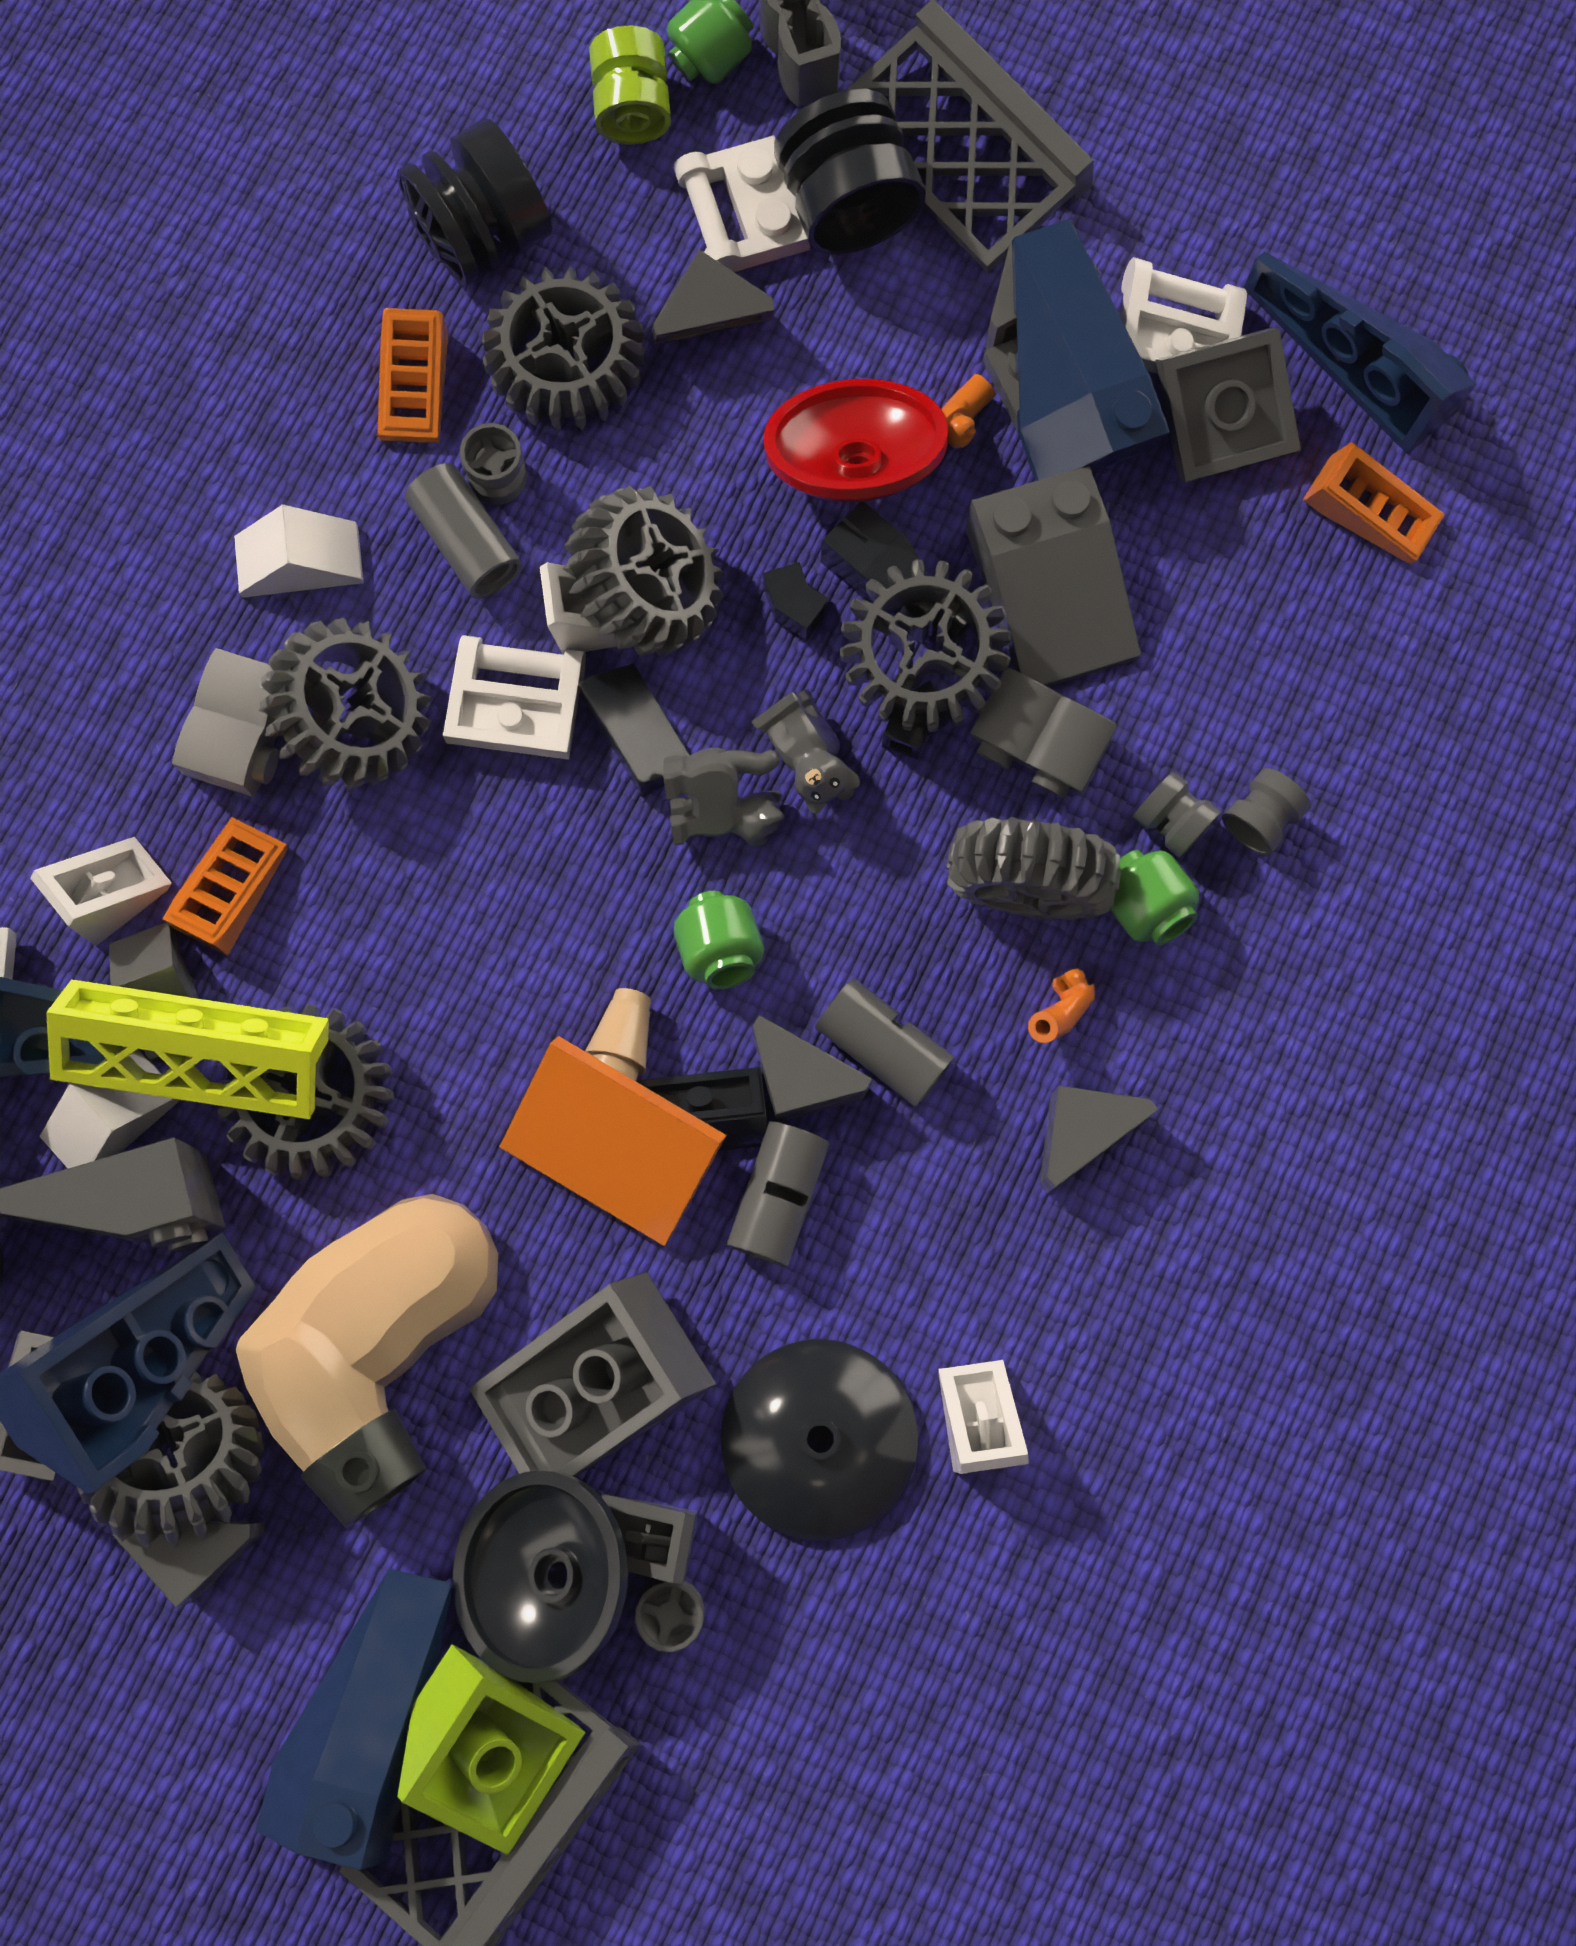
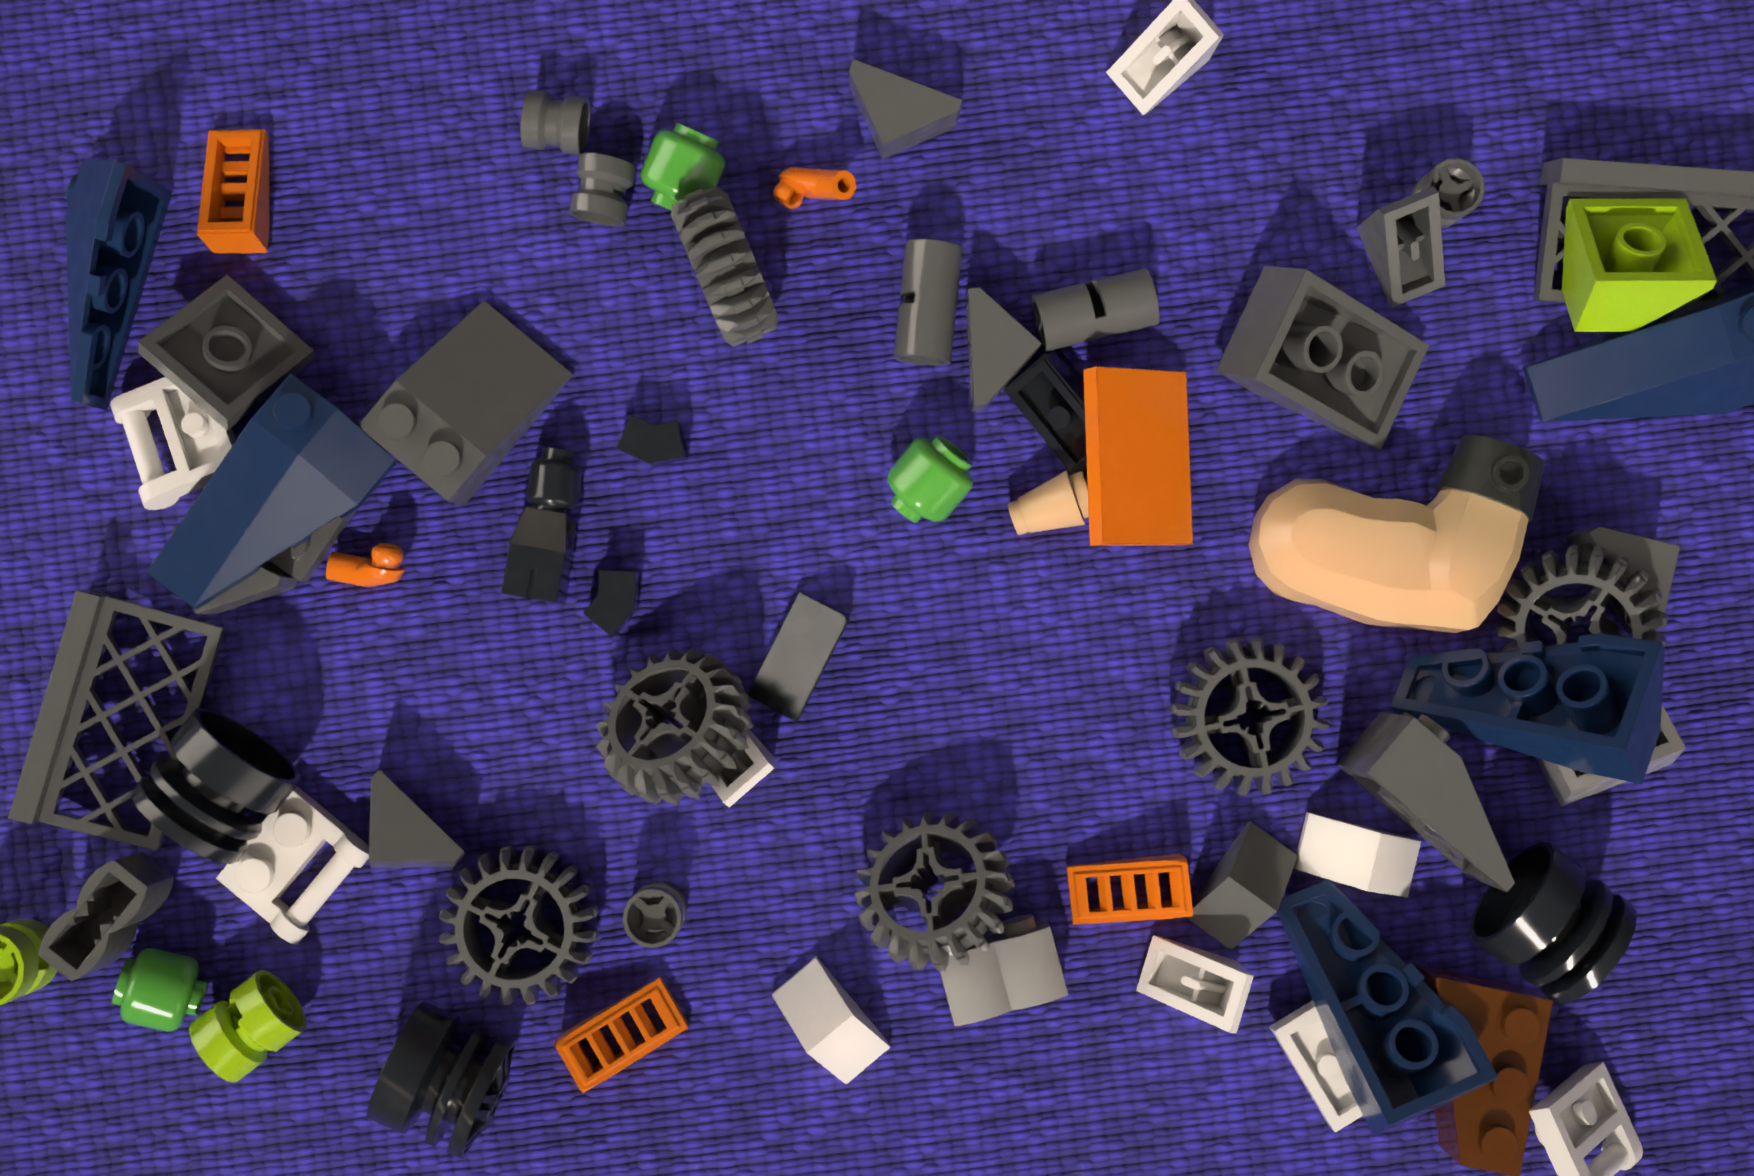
camera: 125 degrees left, 10 degrees up
(189, 1028) = (1278, 825): neon yellow fence -> none
(463, 530) = (727, 901): dark grey pin -> none
(509, 714) = (853, 760): white plate -> none
(513, 1583) = (1509, 312): black dish -> none
(714, 804) = (824, 559): dark grey animal -> none
(768, 1448) = (1227, 199): black dish -> none
(809, 749) = (735, 506): dark grey animal -> none
(856, 439) = (451, 631): red dish -> none
(951, 598) = (624, 459): dark grey gear -> none
(1042, 733) = (603, 332): dark grey brick -> none

